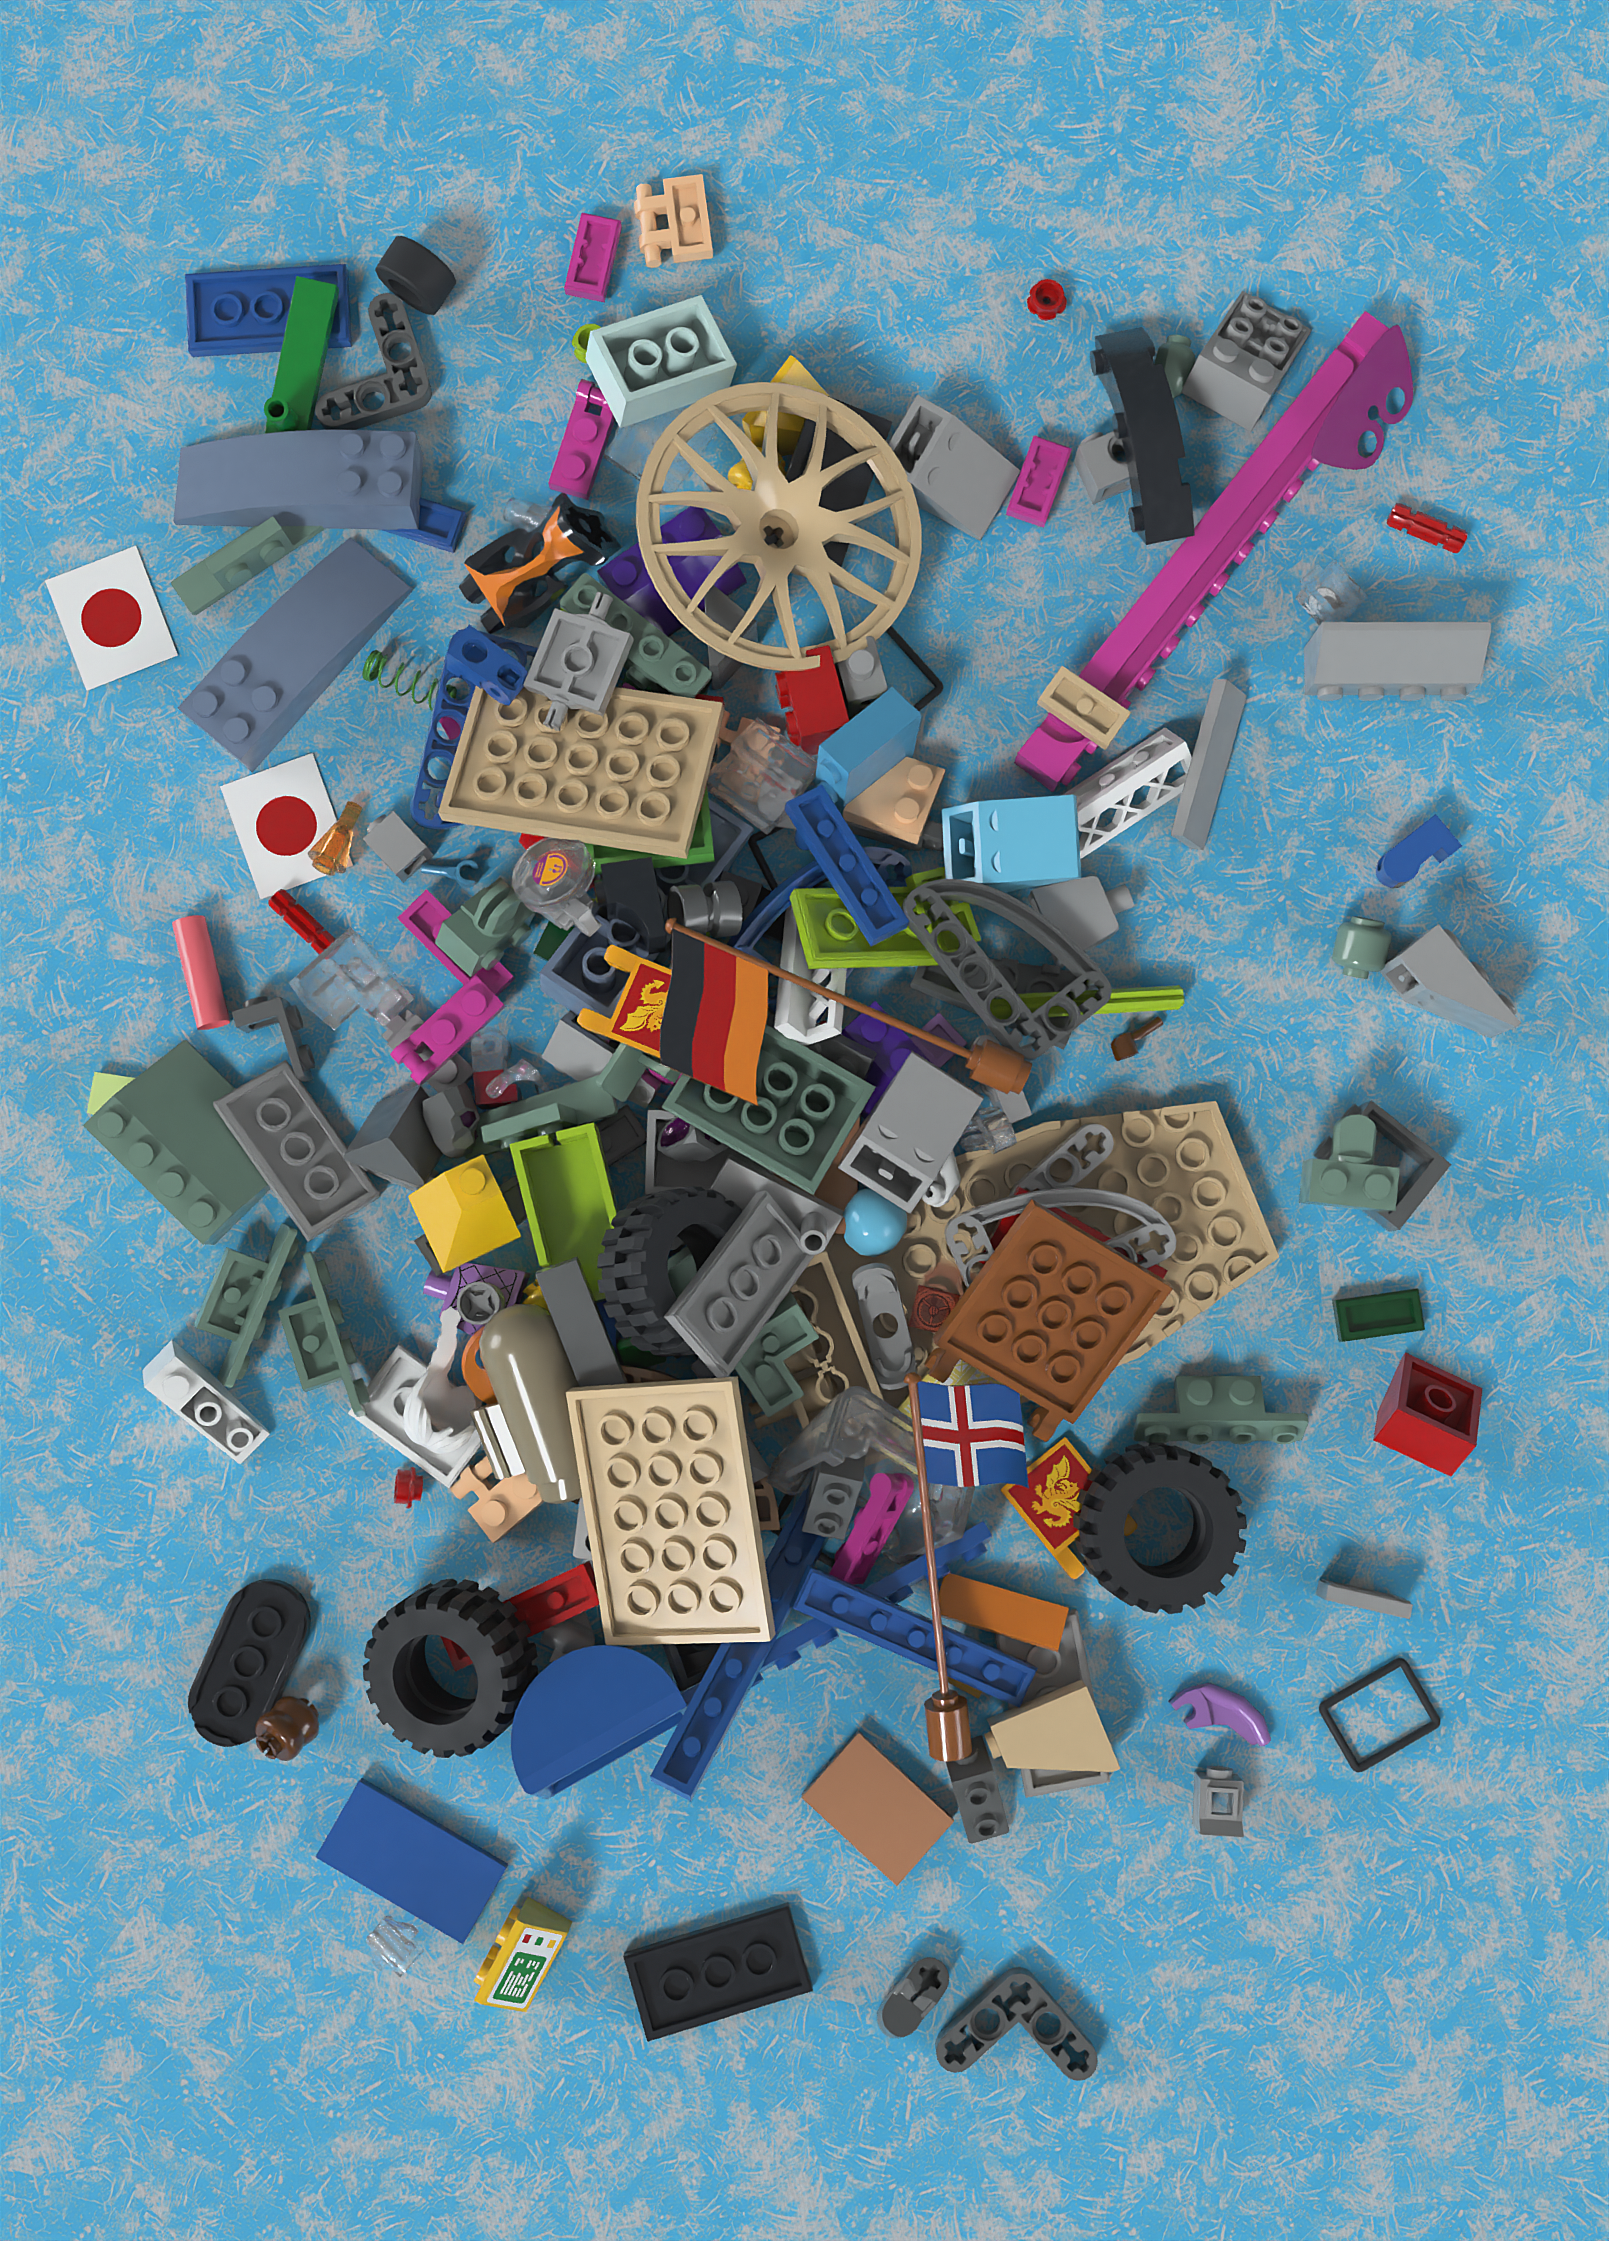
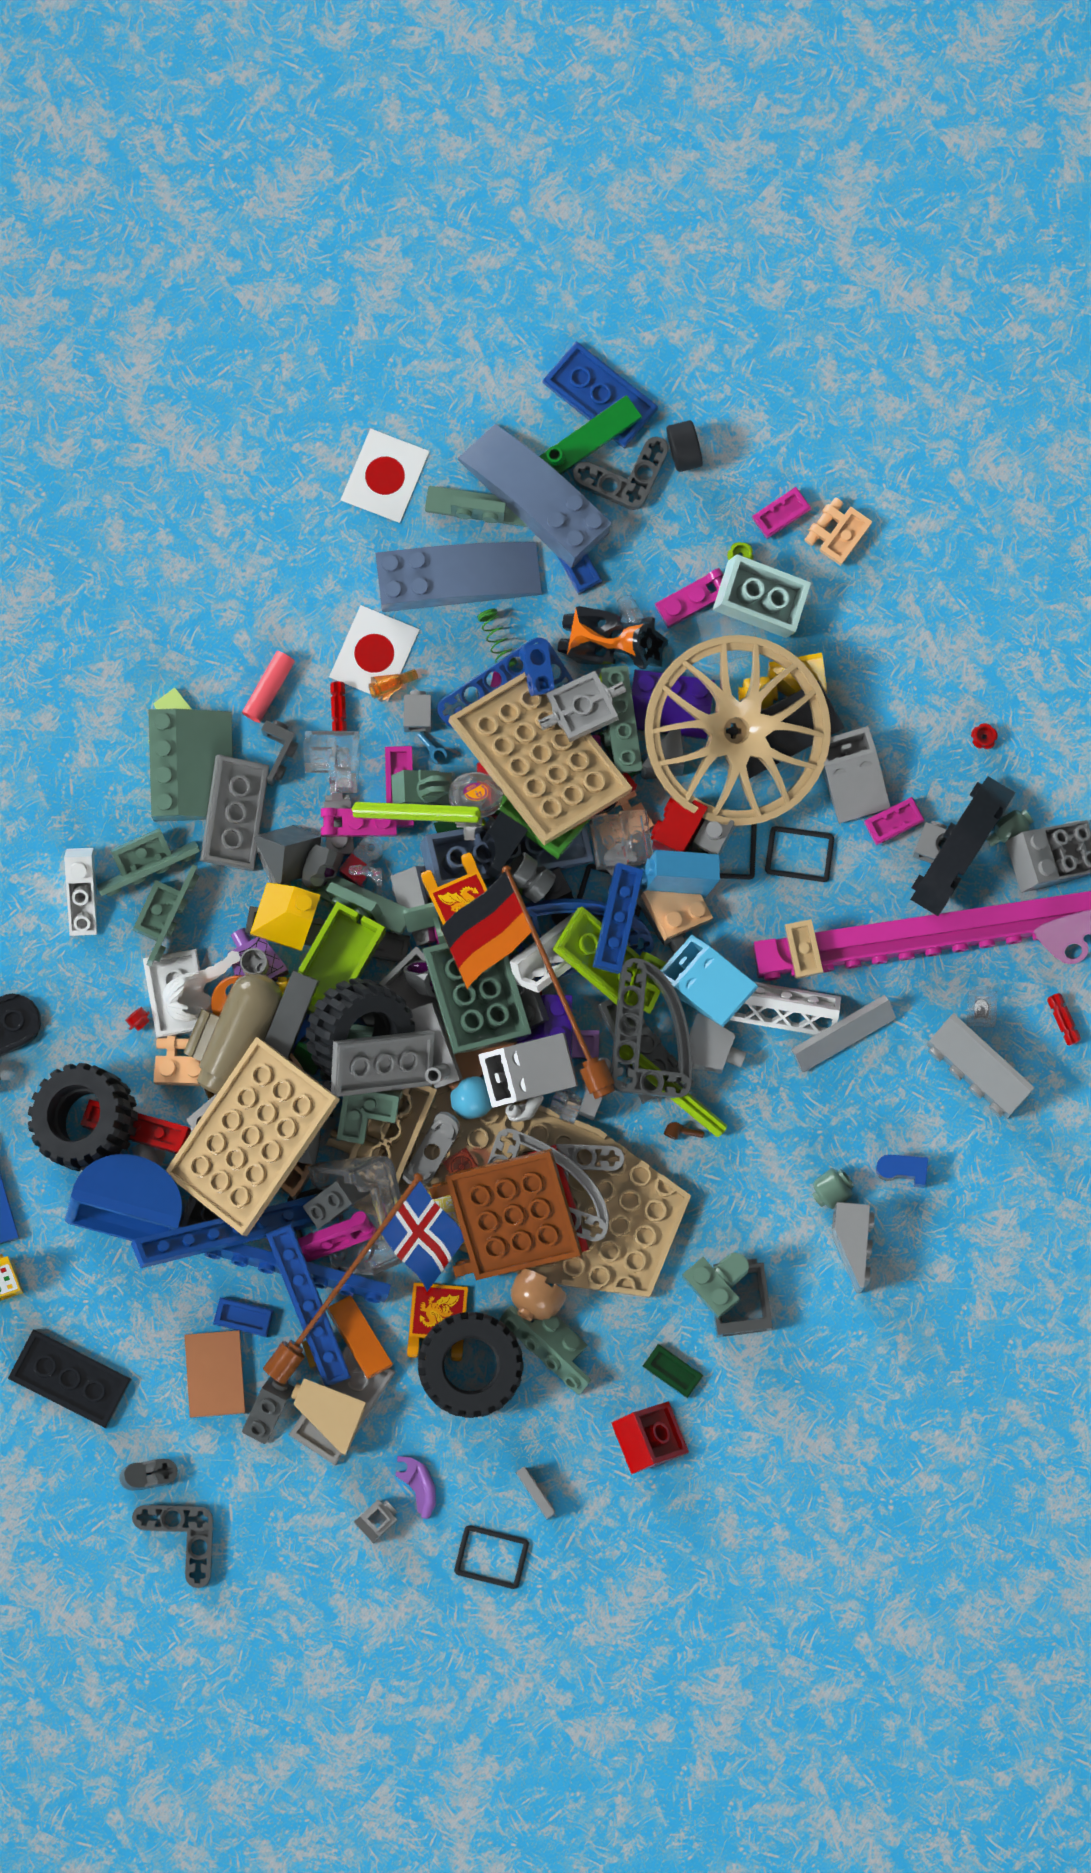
camera: 40 degrees right, 5 degrees down
(504, 955) = (416, 812): none -> lime axle
(848, 1711) = (243, 1317): none -> blue tile
(948, 588) = (797, 875): none -> black piece
(1158, 1380) = (535, 1297): none -> medium nougat cylinder

